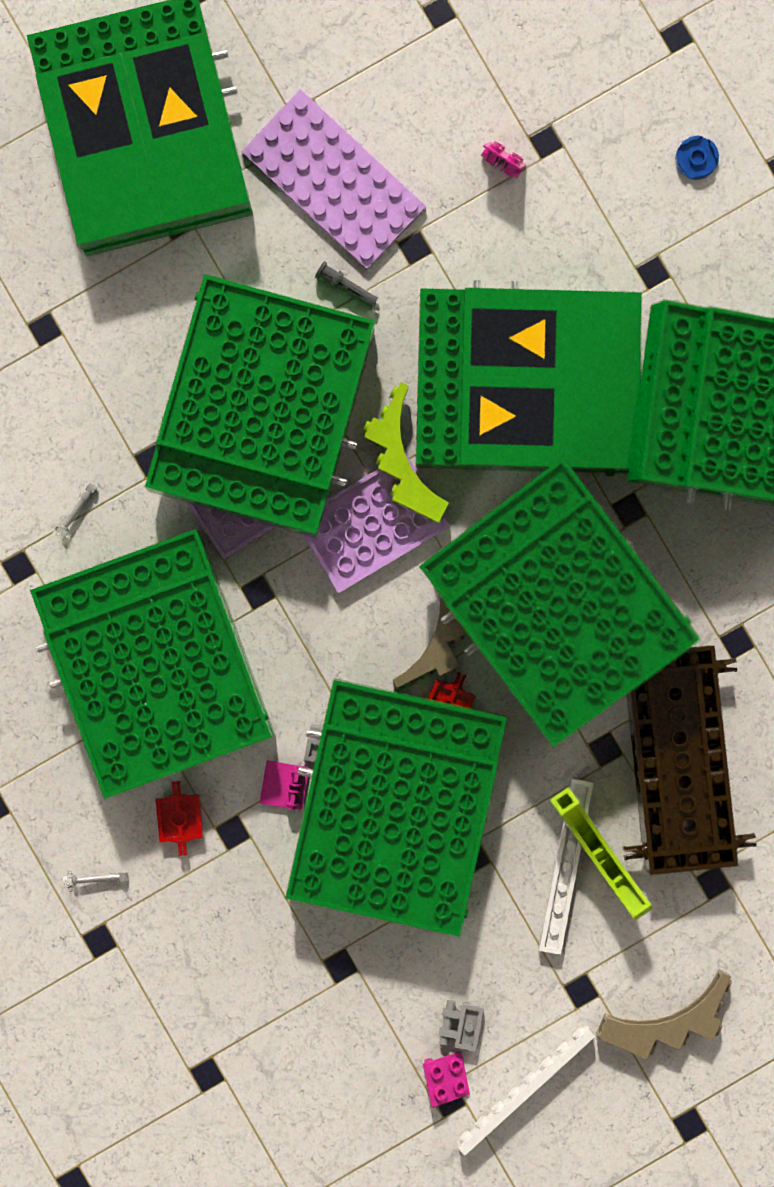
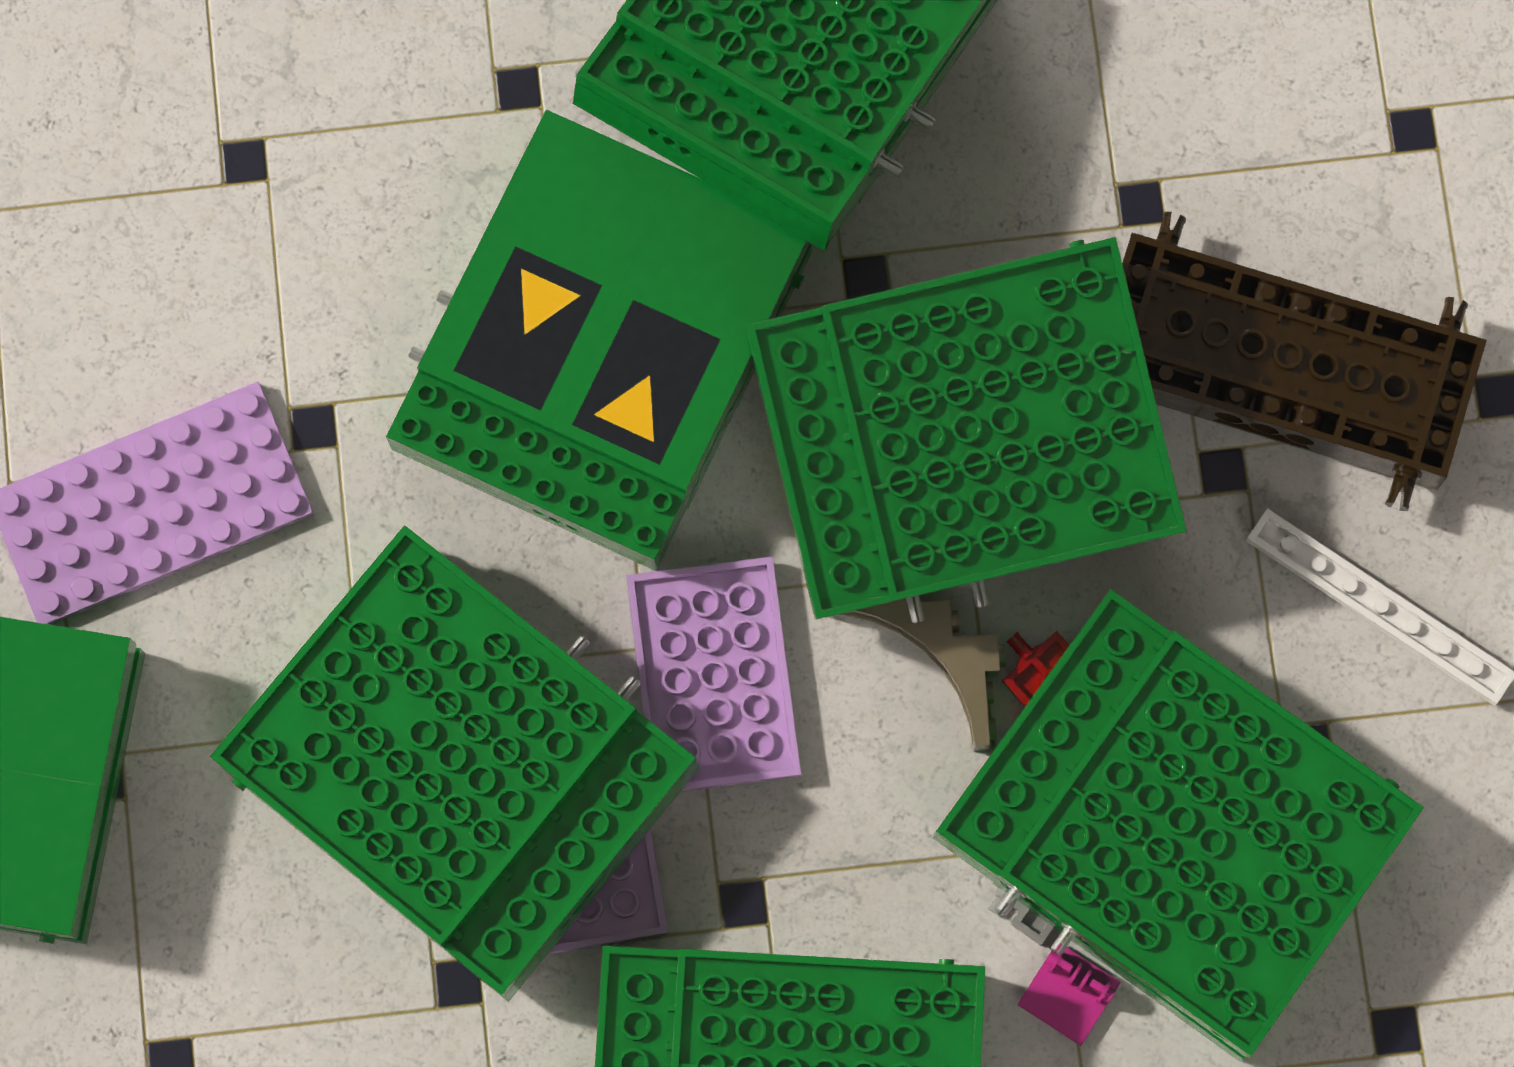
camera: 60 degrees left, 10 degrees down
(337, 280) = (306, 569): dark grey pin -> none
(386, 434) = (587, 589): lime arch -> none
(495, 150) = (223, 236): dark pink hinge -> none
(601, 854) = (1379, 542): lime arch -> none

